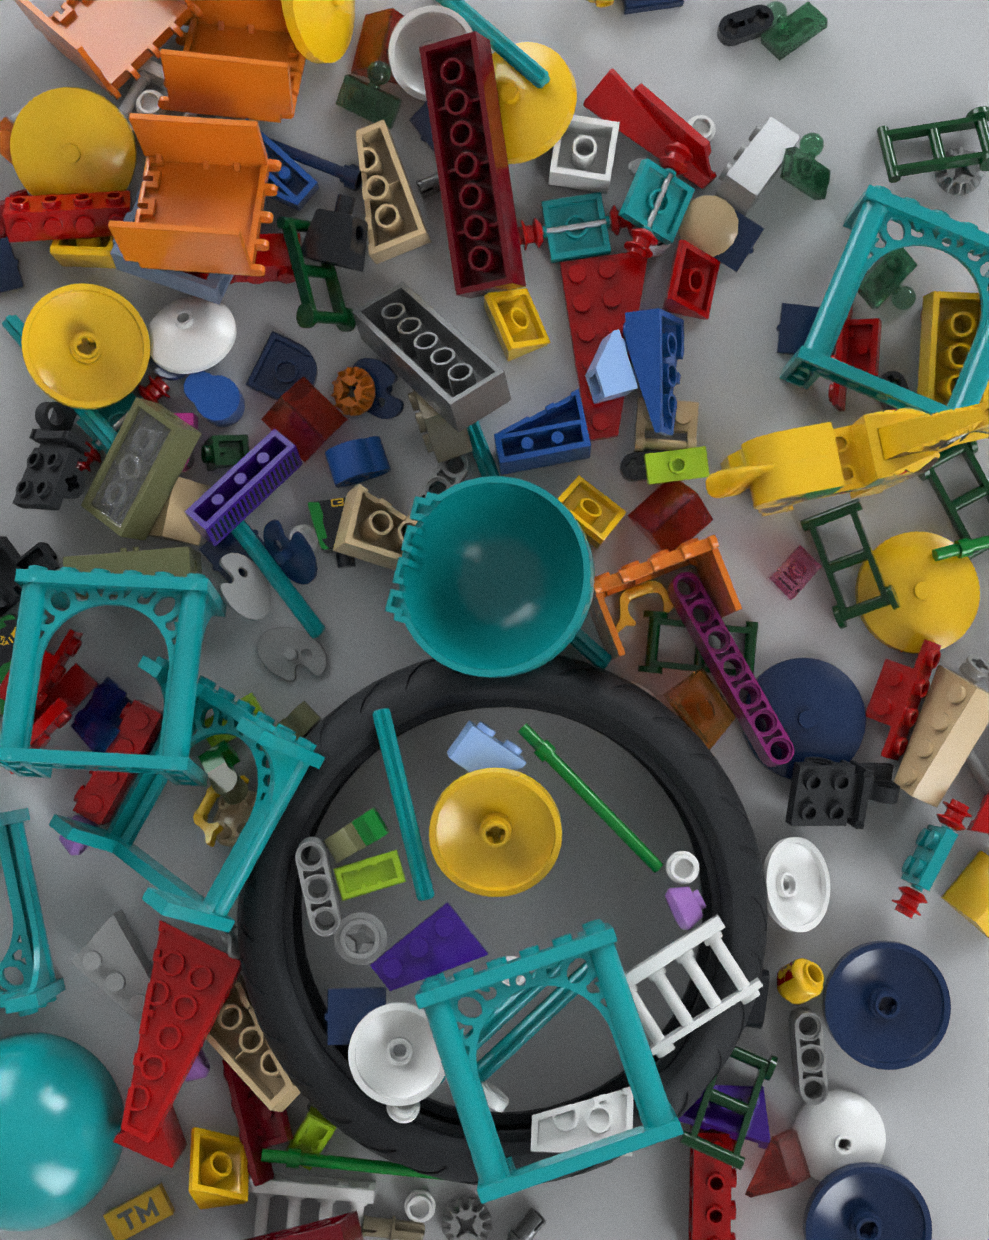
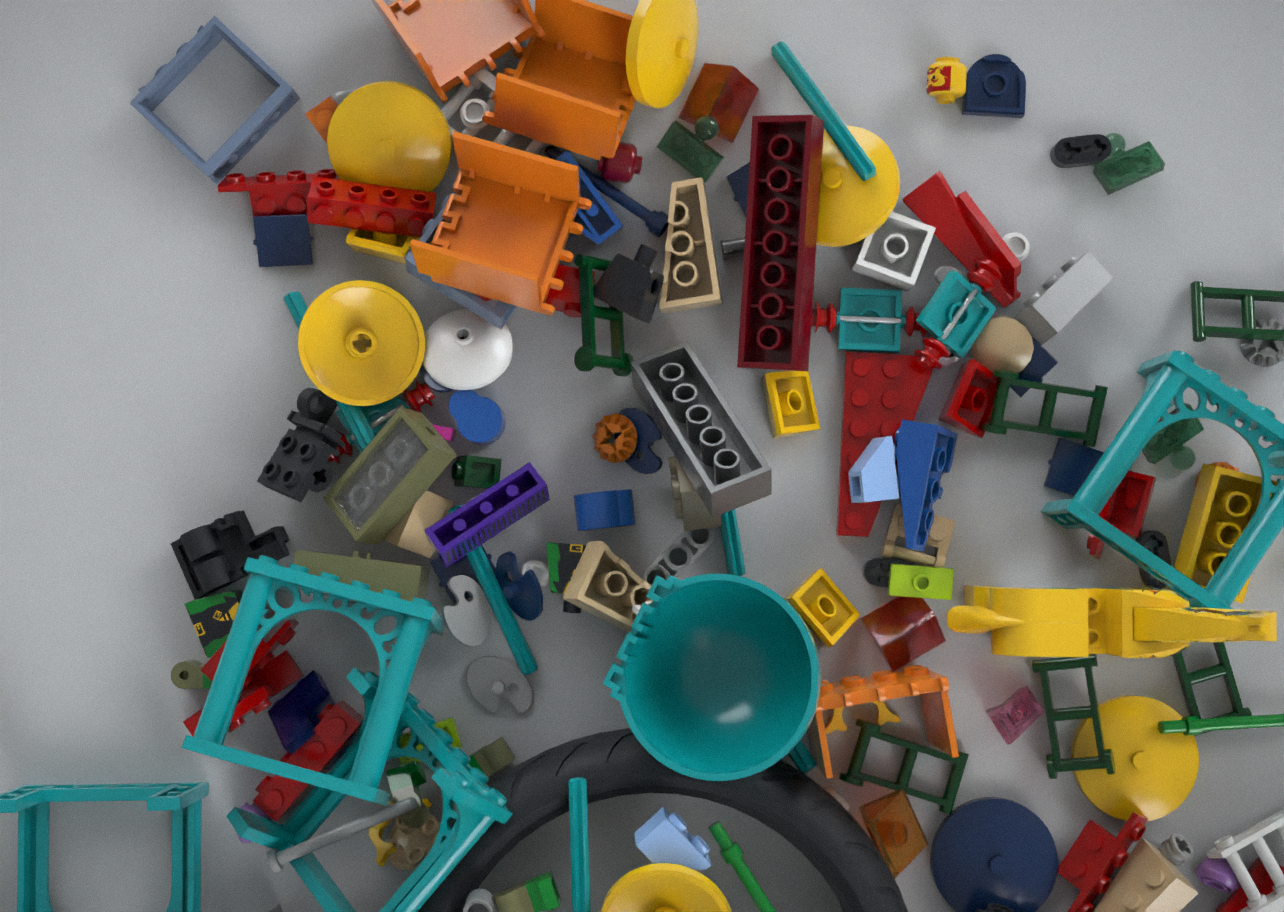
camera: 20 degrees right, 0 degrees up
(108, 858) = (277, 859): none -> light grey bar
(281, 366) = (550, 401): dark blue tile -> none
(304, 126) = (622, 165): none -> dark red head
(304, 418) = (561, 455): clear red slope -> none
(414, 30) = (753, 93): white dish -> none
(546, 438) = (796, 527): blue wedge -> none
(719, 253) = (1000, 426): none -> dark green piece
(730, 685) = (941, 812): magenta beam -> none
(803, 170) = (1109, 311): clear green plate -> none

